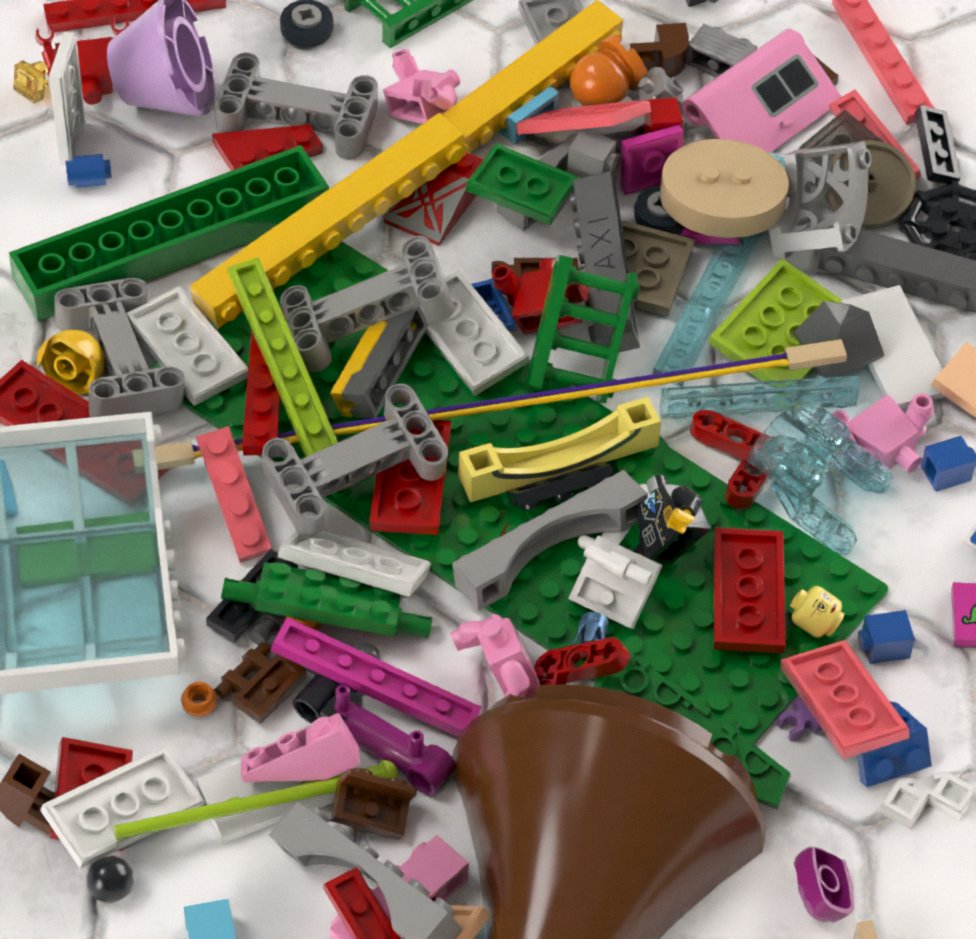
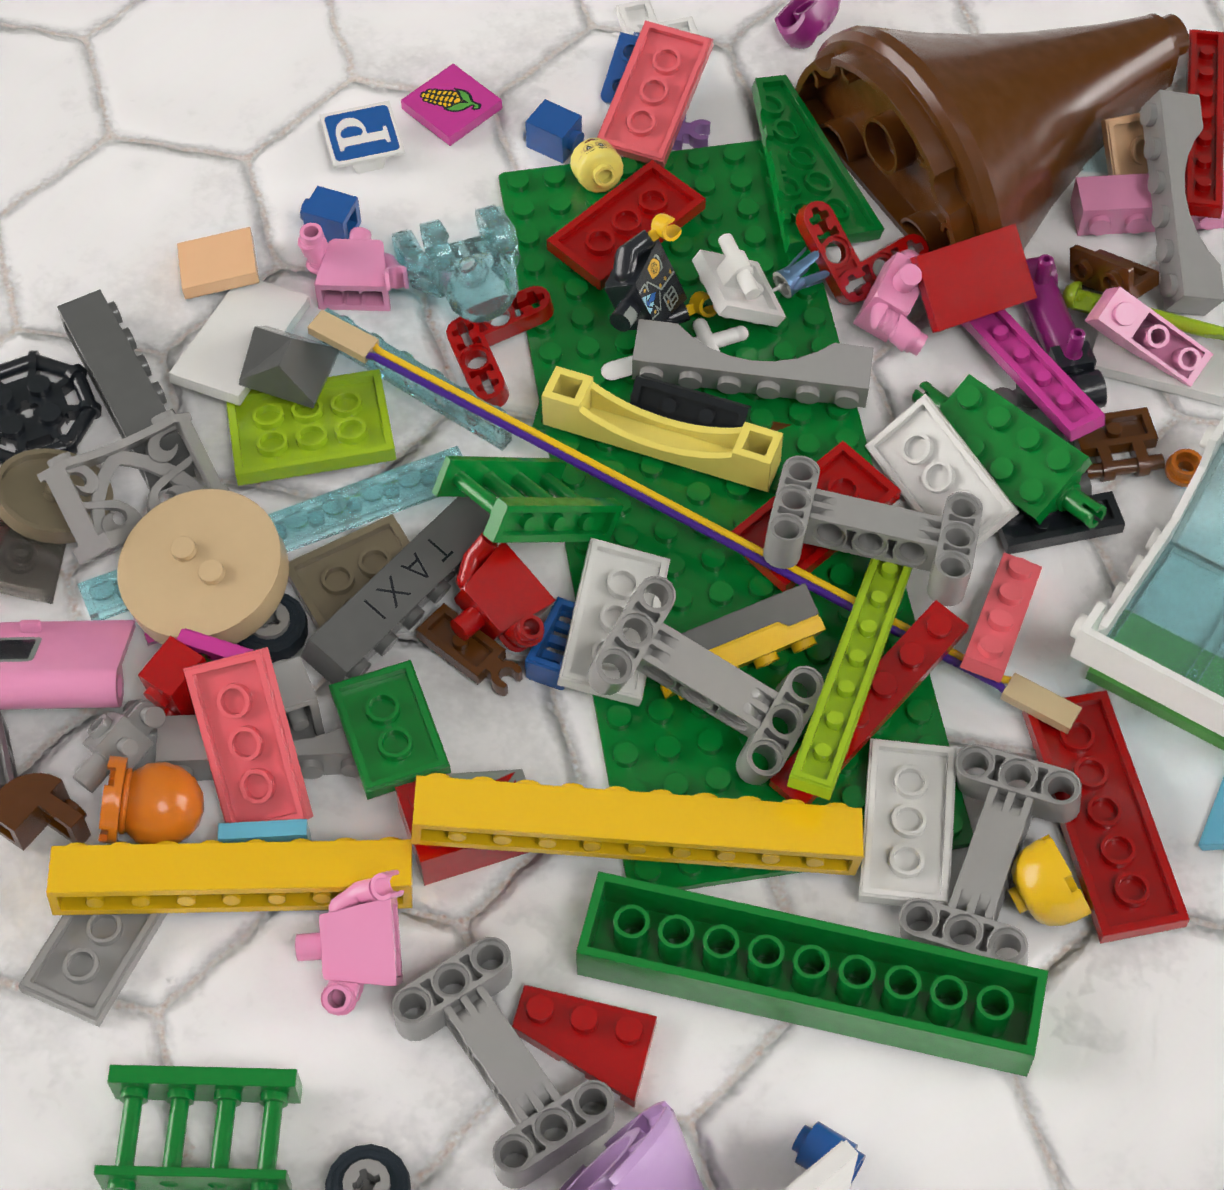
camera: 135 degrees left, 5 degrees up
(456, 687) = (974, 278): none -> red tile

